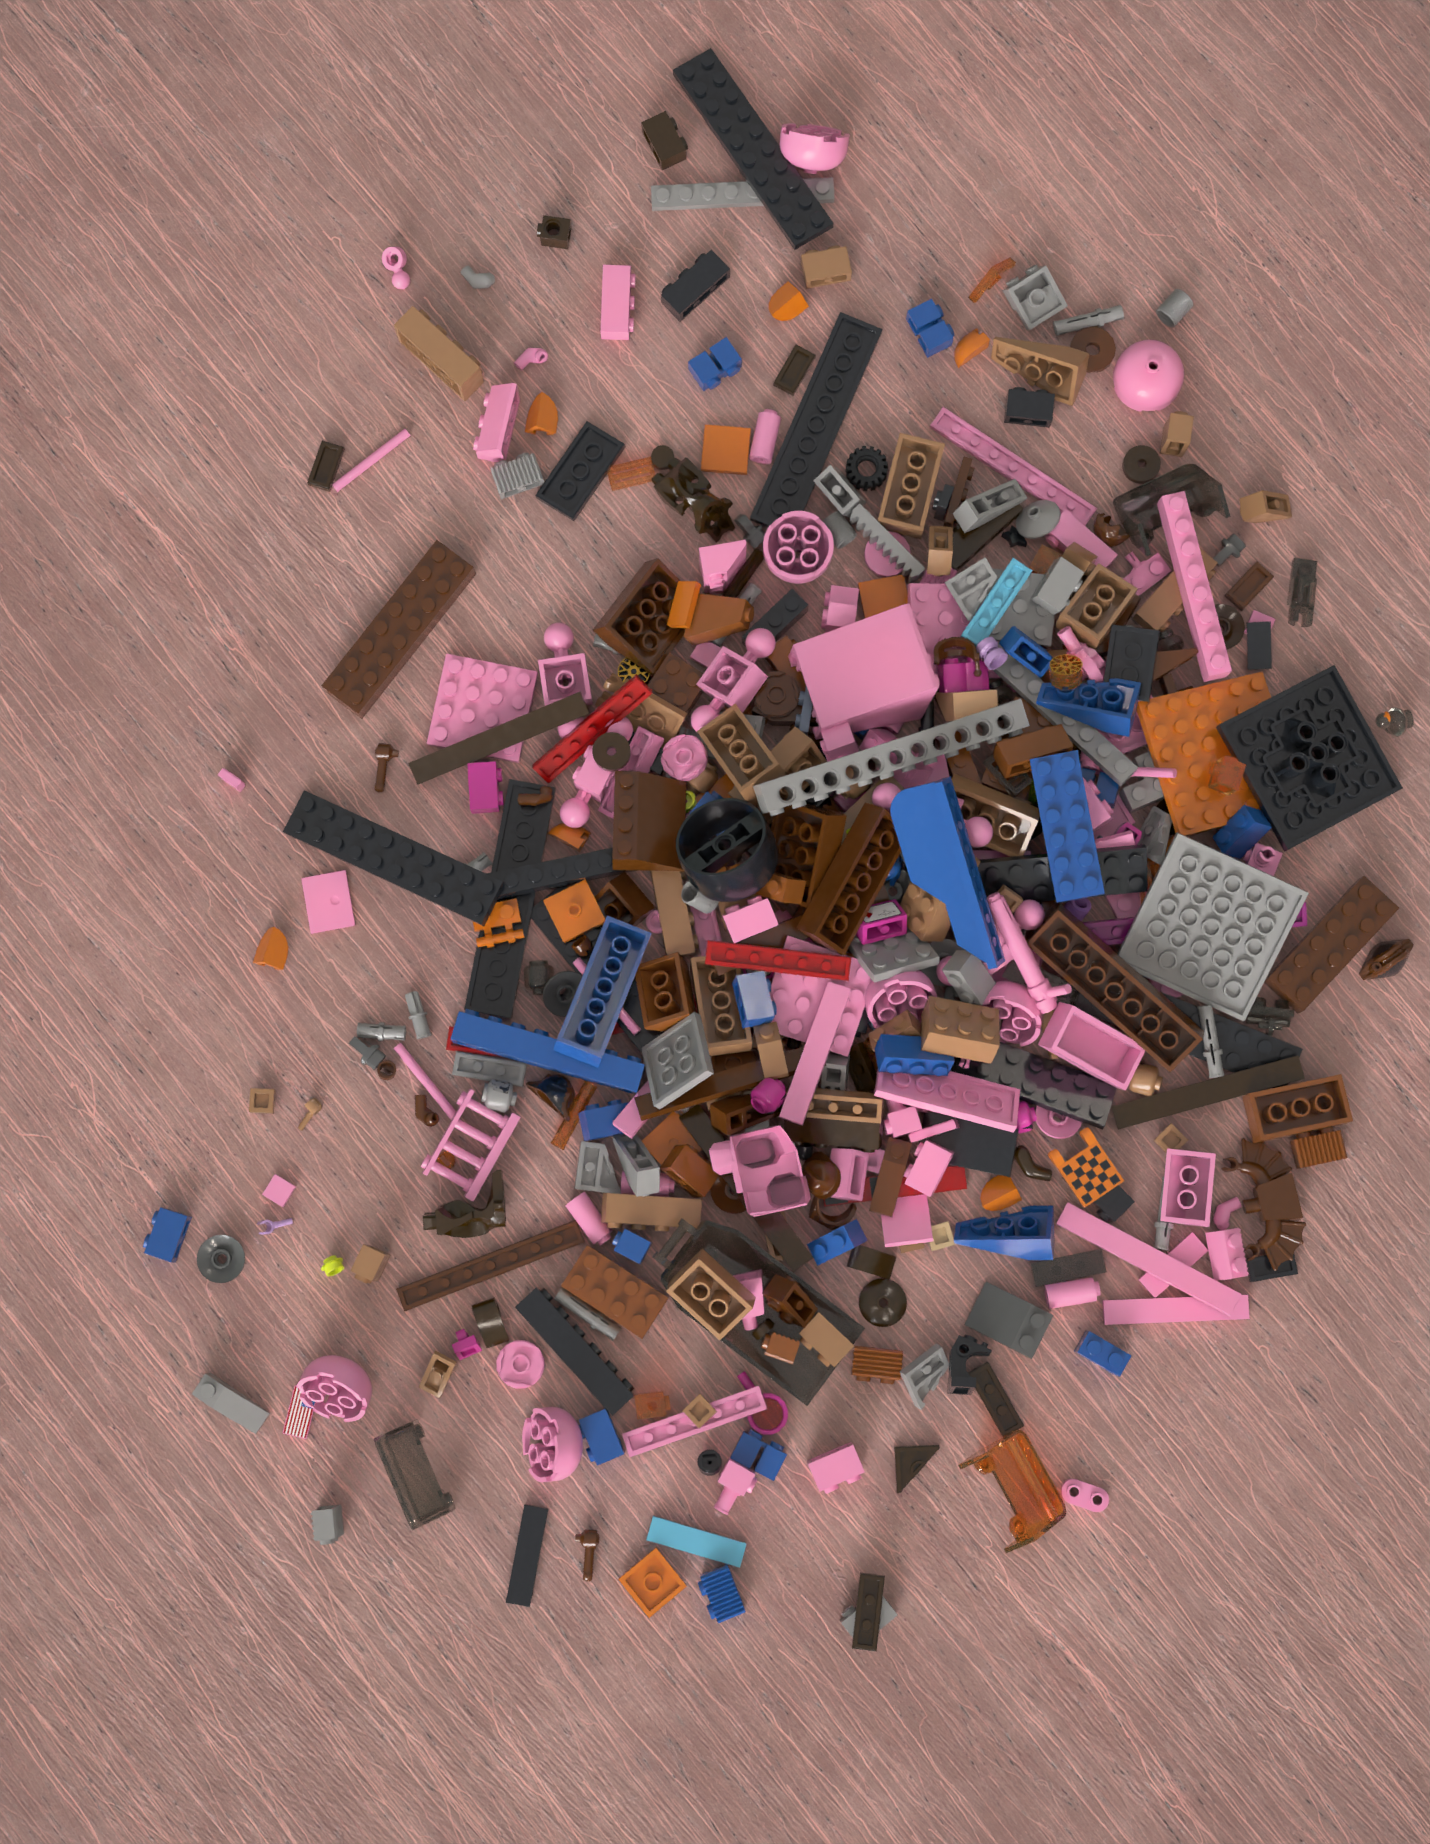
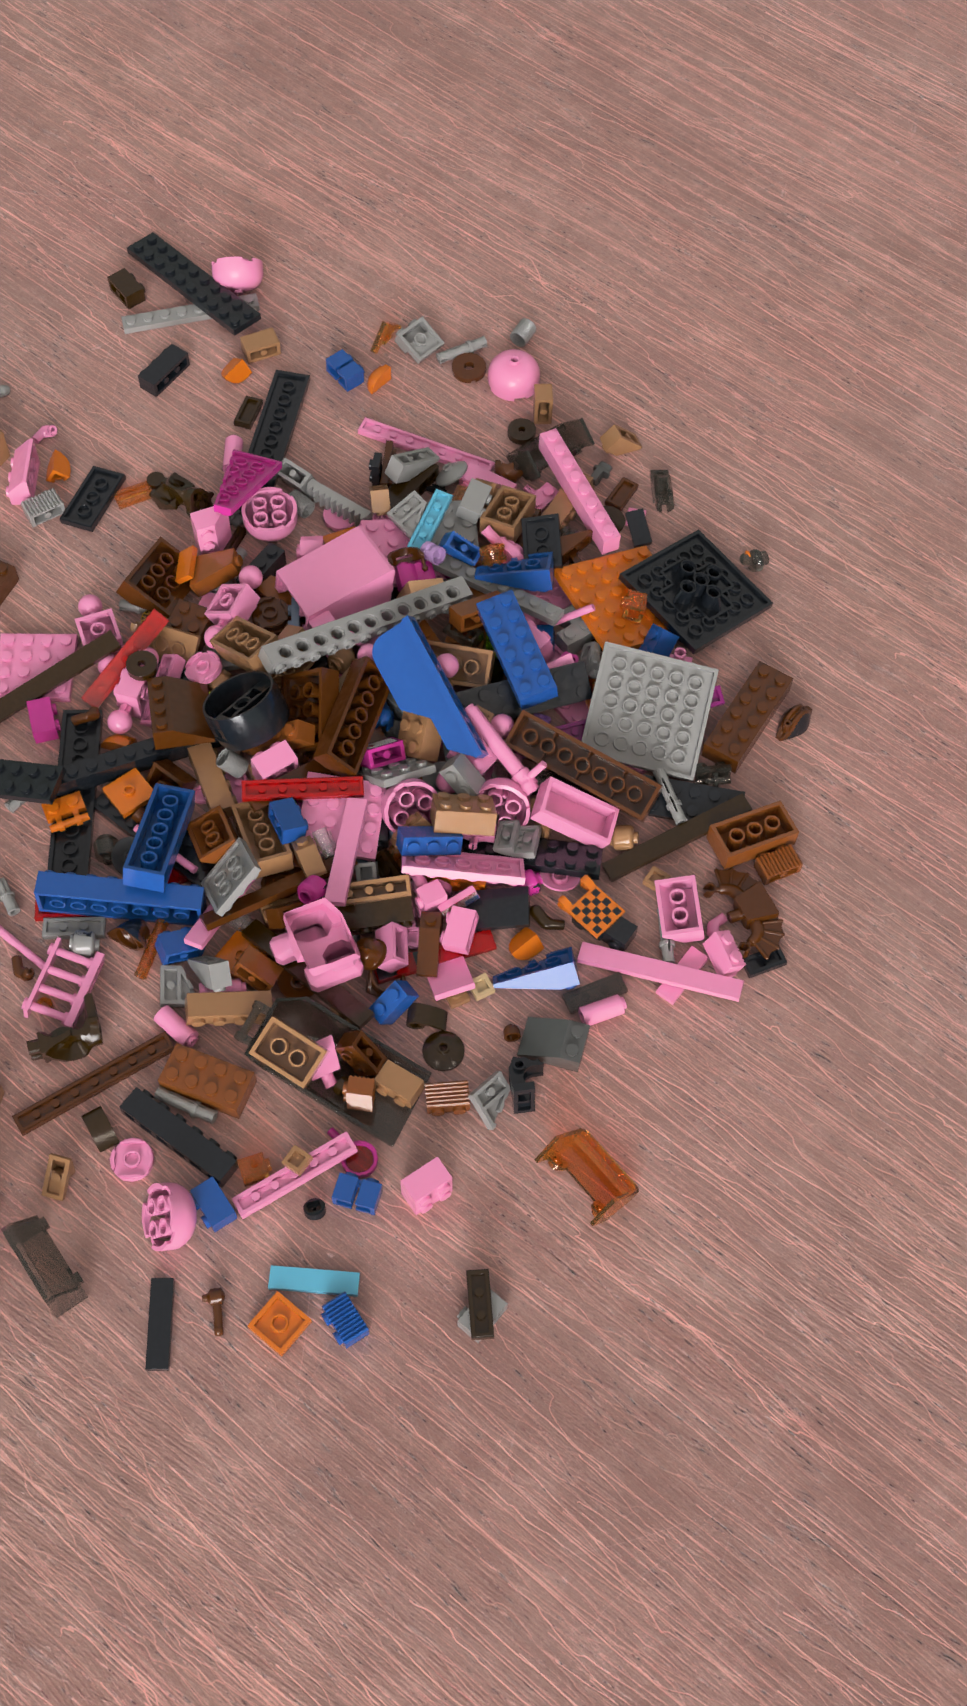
camera: 15 degrees left, 20 degrees down
(466, 1346) = (80, 1150): dark pink tile -> none
(559, 240) = (52, 353): dark brown brick -> none
(617, 302) = (106, 388): bright pink brick -> none
(631, 1245) = (216, 1037): blue piece -> none
(725, 359) = (183, 420): blue piece -> none
(725, 449) = (204, 468): orange tile -> none
(736, 1481) = (339, 1215): bright pink brick -> none
(776, 494) = (243, 479): none -> dark pink wing
(791, 1034) = (324, 842): none -> clear brick
(866, 455) = (315, 455): black tyre -> none
(910, 485) = (350, 464): medium nougat brick -> none
(910, 1461) = (493, 1175): dark brown tile -> none
(963, 1298) = (511, 1033): none -> reddish brown hinge
(996, 1399) = (556, 1108): dark brown tile -> none
(1018, 1063) = (517, 840): none -> light grey slope
(1029, 407) = (429, 407): black brick -> none
(1044, 365) = (440, 380): medium nougat wedge -> none
(1085, 1495) = (651, 1176): bright pink plate -> none
(1102, 1353) = (639, 1052): blue brick -> none
(1168, 1310) = (689, 1010): bright pink tile -> none

